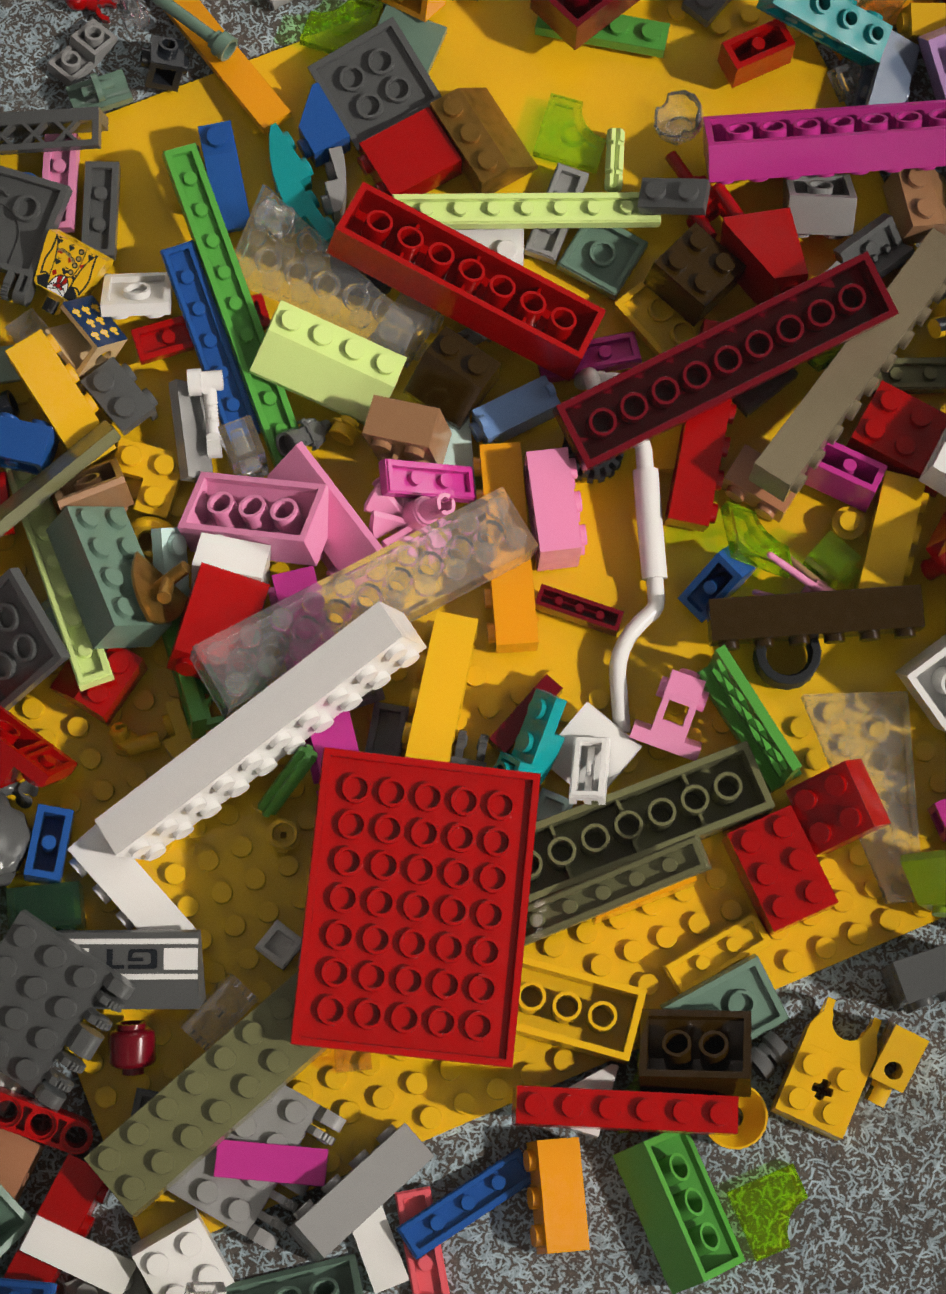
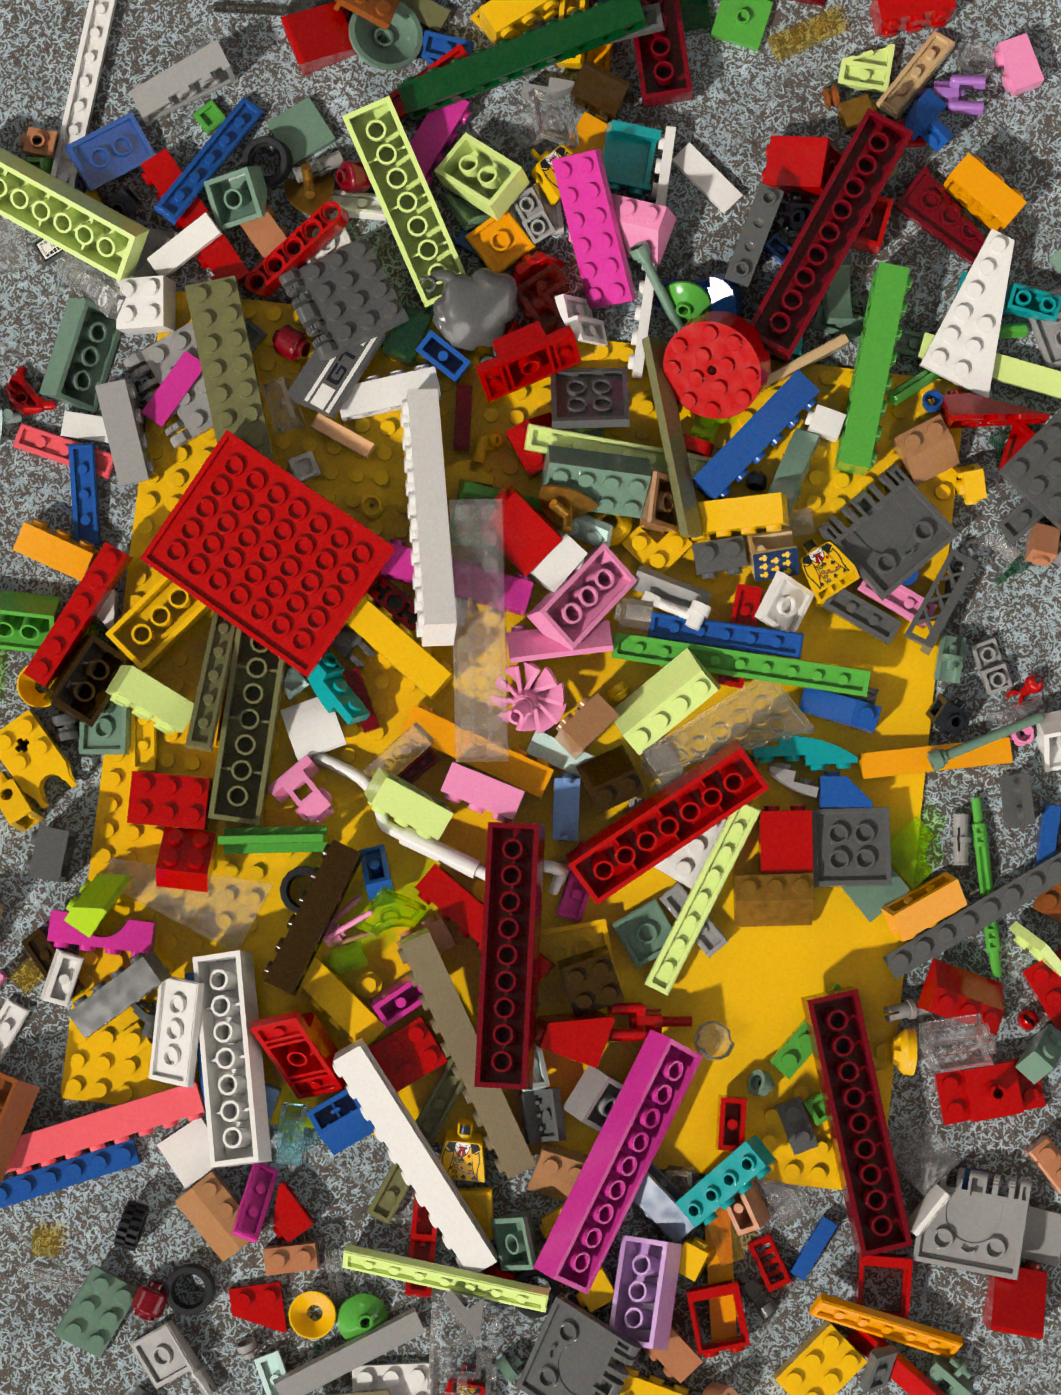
camera: 125 degrees right, 10 degrees up
(111, 786) = (462, 423): none -> dark red piece
(215, 918) = (342, 436): none -> light nougat piece
(274, 218) = (782, 719): clear wheel -> none
(287, 780) = (398, 523): bright green axle -> none
(310, 433) = (625, 666): dark grey piece -> none
(382, 711) = (375, 595): none -> red beam
(426, 479) = (545, 720): dark pink tile -> none
(566, 137) = (745, 958): clear neon green tile -> none
(566, 629) = (401, 751): none -> clear plate
(589, 795) = (280, 702): white tile -> none
(614, 160) = (710, 981): yellowish green axle -> none
(618, 581) = (408, 804): none -> yellowish green brick
(674, 196) = (654, 999): dark grey plate -> none
(677, 955) = (150, 699): none -> yellowish green brick
(693, 49) = (760, 1083): none -> sand green tile

